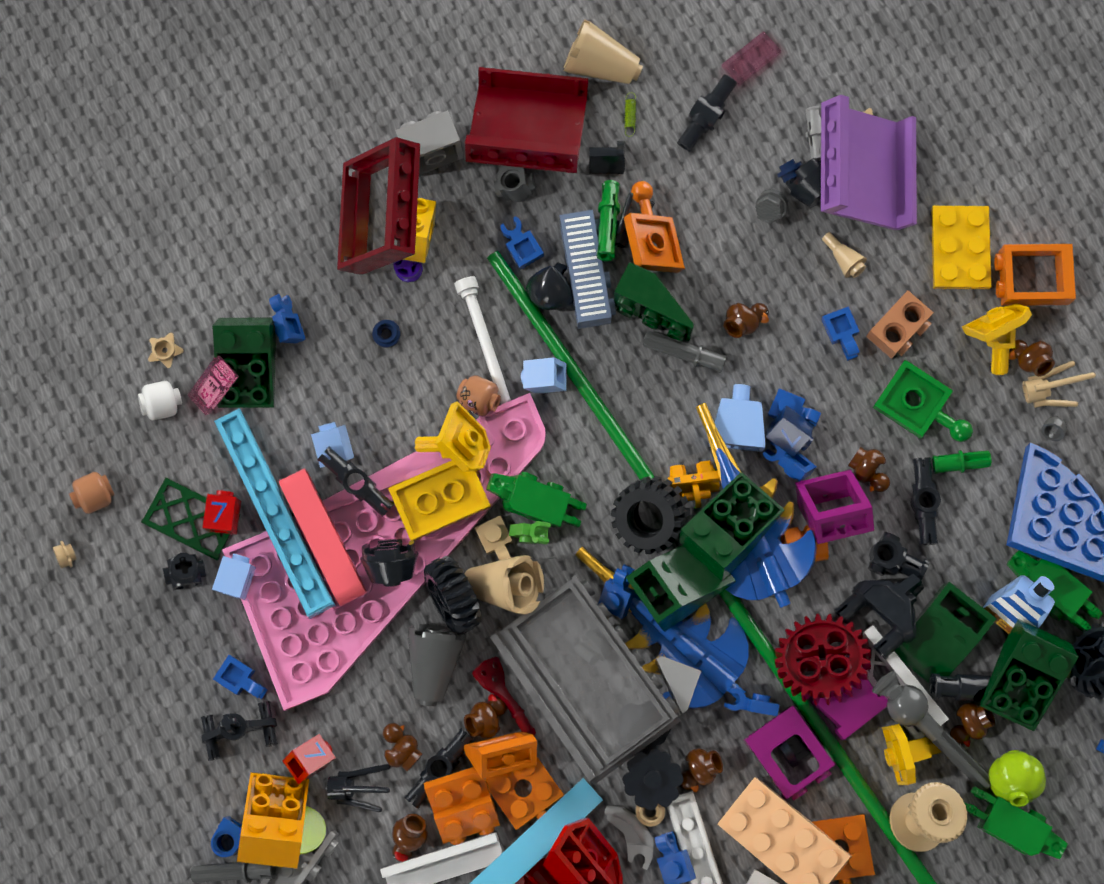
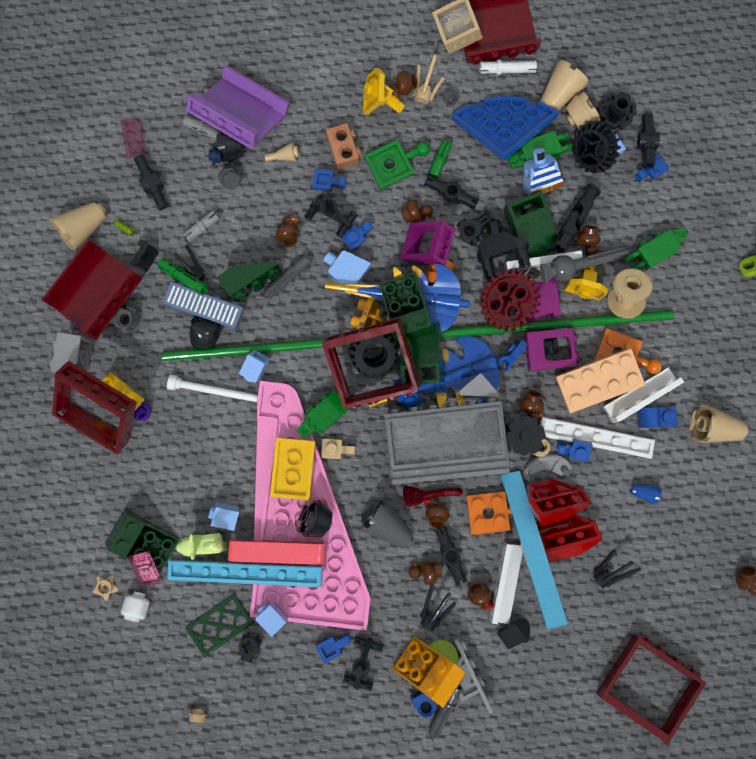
camera: 70 degrees left, 5 degrees up
(91, 492) = (168, 679): nougat head -> none
(222, 513) = (227, 605): red brick -> none
(281, 437) = (202, 544): none -> yellowish green animal
(286, 323) = (131, 503): blue plate -> none
(309, 758) = (404, 630): brick -> none
(343, 470) = (244, 516): black pin -> none
(384, 325) = (169, 442): dark blue plate -> none
(452, 595) = (355, 492): black gear -> none
(459, 439) = (265, 437): yellow piece -> none
(461, 806) = (479, 554): orange plate -> none
(478, 395) = (244, 412): nougat head -> none
(502, 754) = (463, 514): orange tile -> none
(508, 583) = (366, 457): tan cone -> none
(522, 246) = (168, 336): blue plate -> none
(531, 533) = (344, 426): bright green plate -> none
(606, 566) = (374, 396): none -> dark red window
(648, 228) = (202, 256): orange plate -> none
(687, 206) = (201, 226): none -> light grey pin
(790, 431) = (369, 243): dark blue brick -> none
(795, 467) = (389, 252): blue plate -> none
(805, 352) = (328, 207): none -> black axle
(961, 247) = (316, 86): yellow plate -> none
(1017, 778) = (633, 232): lime plant -> none
(1028, 674) = (582, 191): dark green slope -> none
(1064, 274) = (365, 38): orange window -> none

